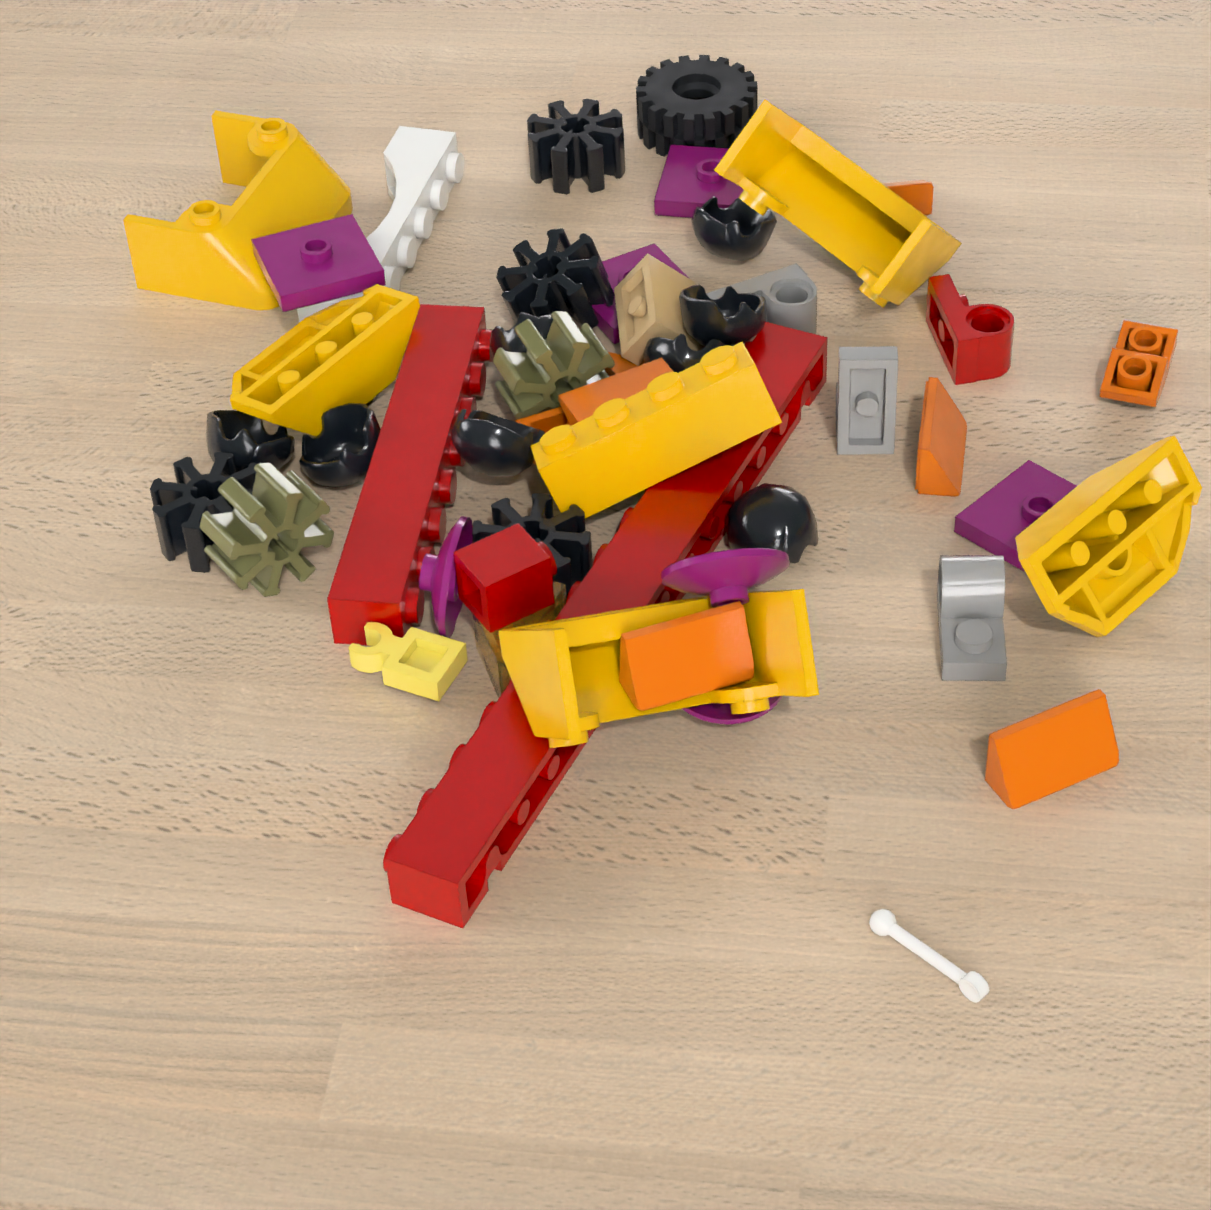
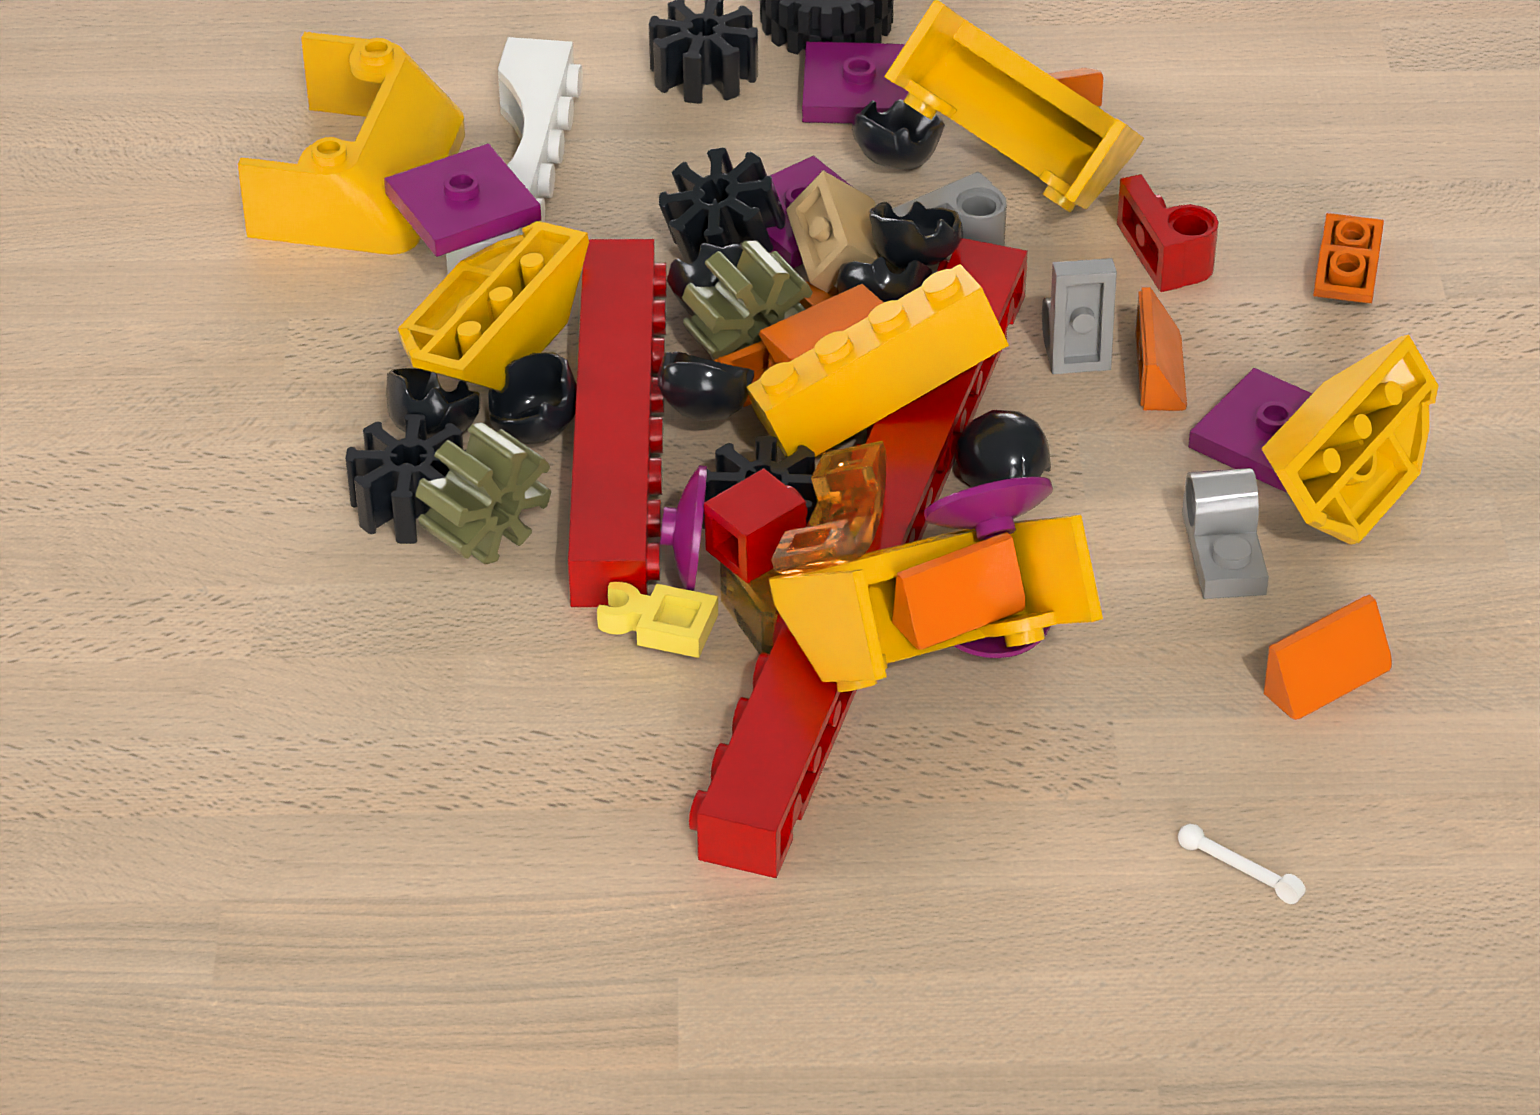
camera: 10 degrees left, 0 degrees up
(604, 557) = (847, 513): none -> clear orange slope

